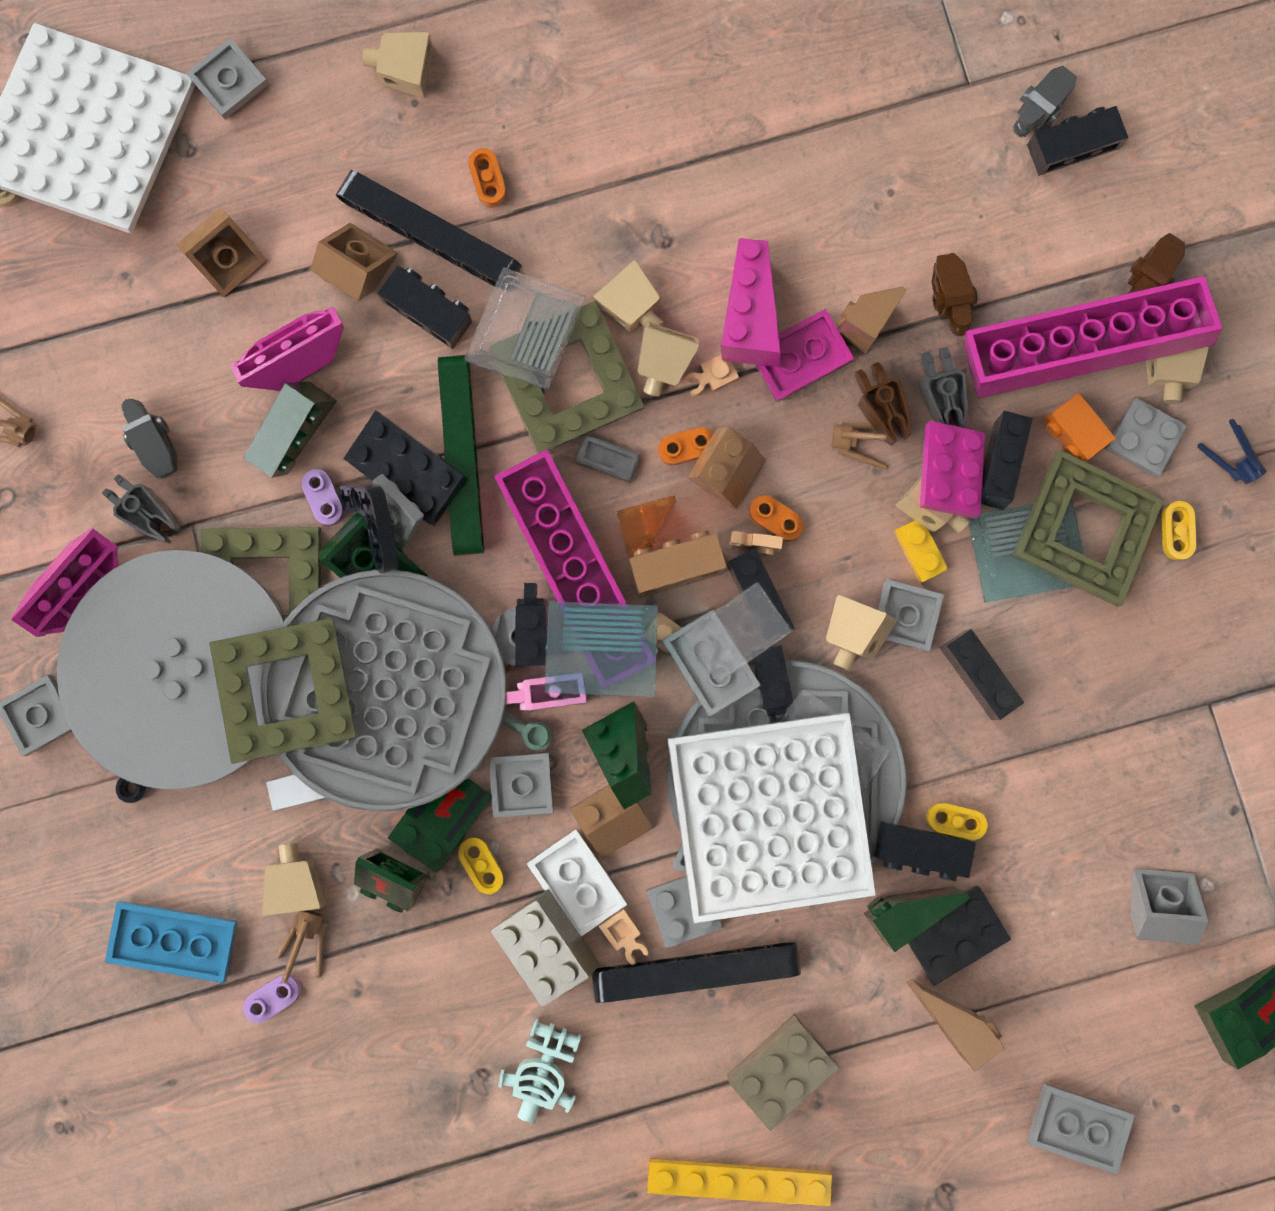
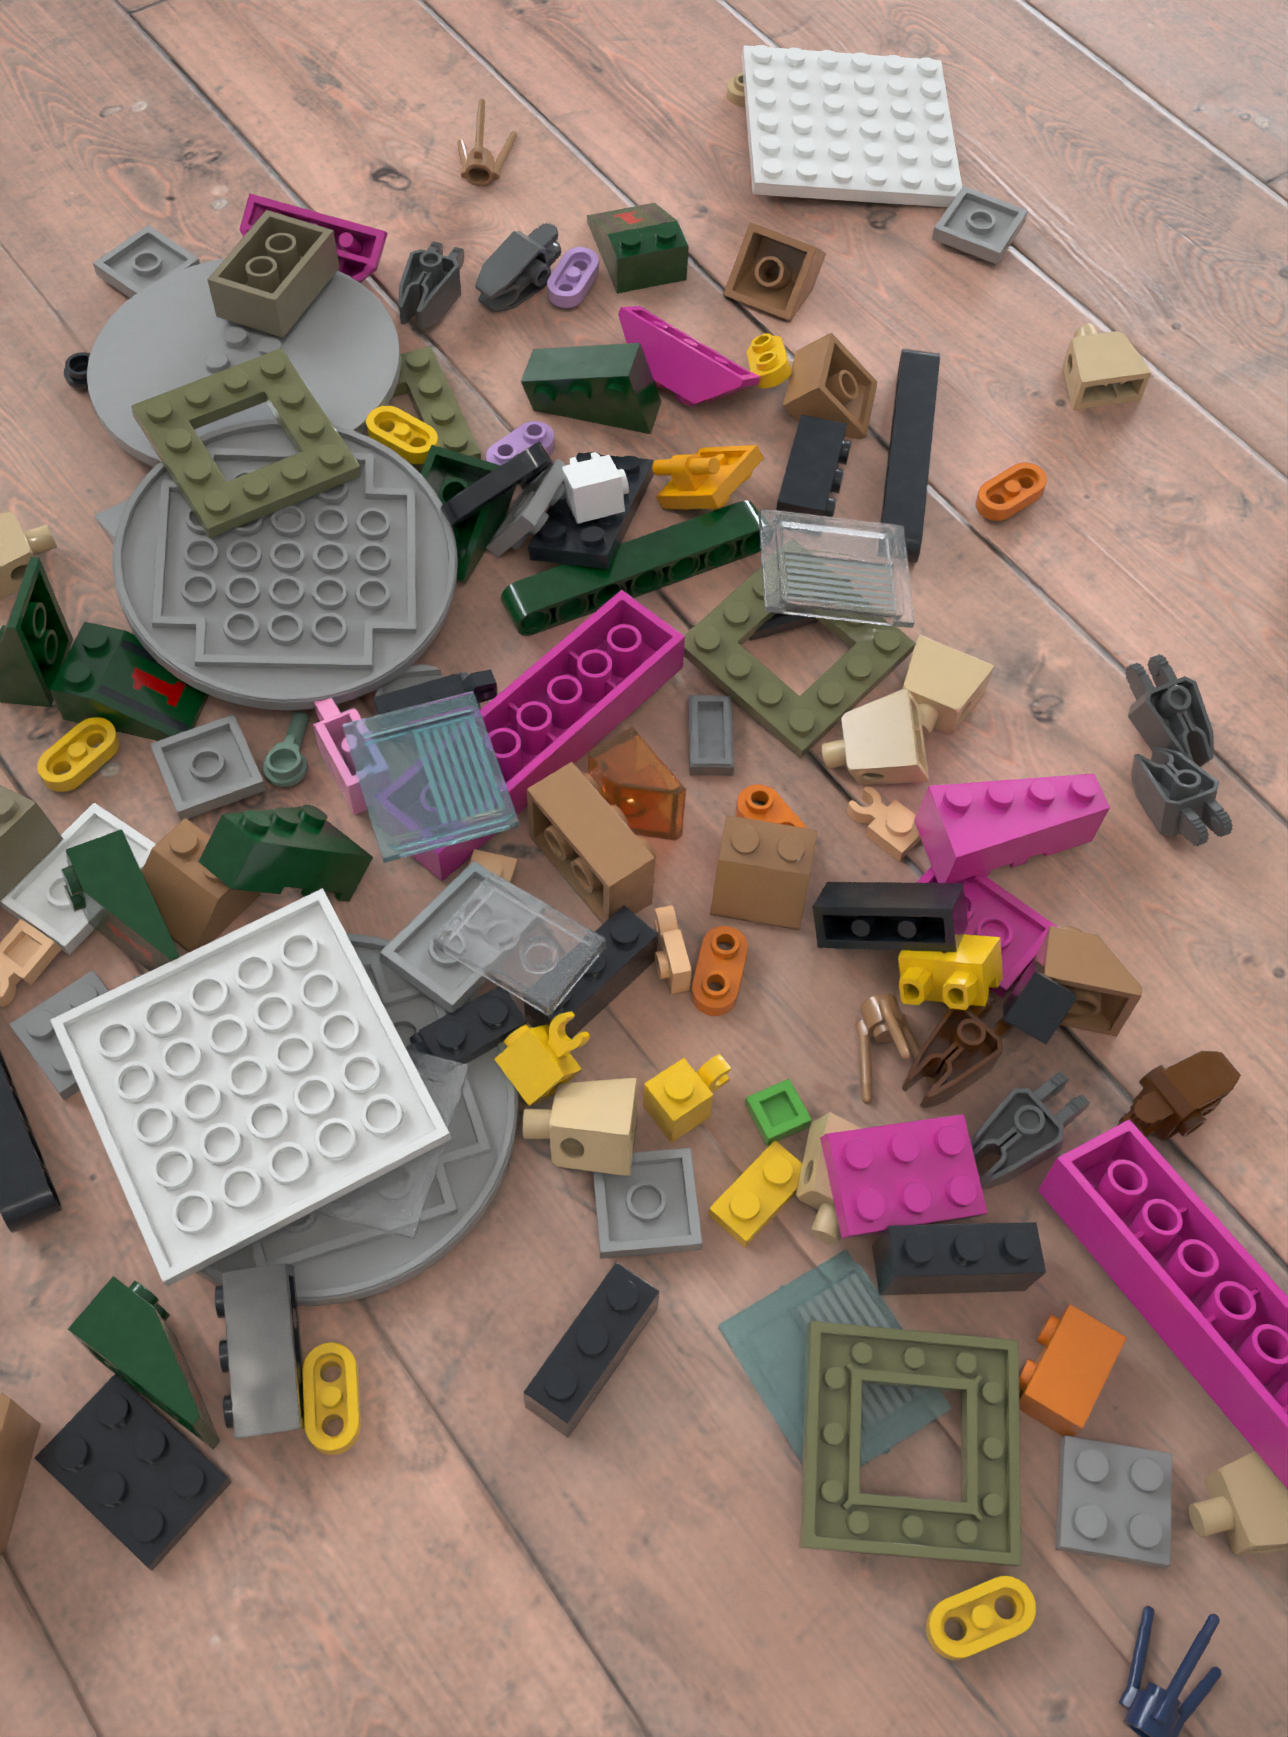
camera: 65 degrees right, 25 degrees down
(108, 624) = (274, 273): none -> dark tan brick
(149, 339) = (640, 246): none -> dark green slope
(170, 401) = (573, 277): none -> lavender plate
(294, 577) = (407, 434): none -> yellow plate
(307, 292) = (769, 360): none -> yellow plate
(403, 463) = (594, 487): none -> white brick
(405, 379) = (705, 477): none -> light orange plate
(619, 866) = (116, 899): none -> dark green slope
(706, 166) = (1171, 712): none -> dark grey hinge
(764, 192) = (1179, 796): none -> dark grey hinge
(792, 406) = (890, 916): none -> black brick
(809, 644) = (541, 1058): none -> yellow brick
(839, 389) = (952, 977): none -> yellow hips
(855, 572) = (683, 1098): none -> yellow brick
(879, 521) = (778, 1112): none -> bright green plate
(882, 351) = (1037, 1003): none -> black panel

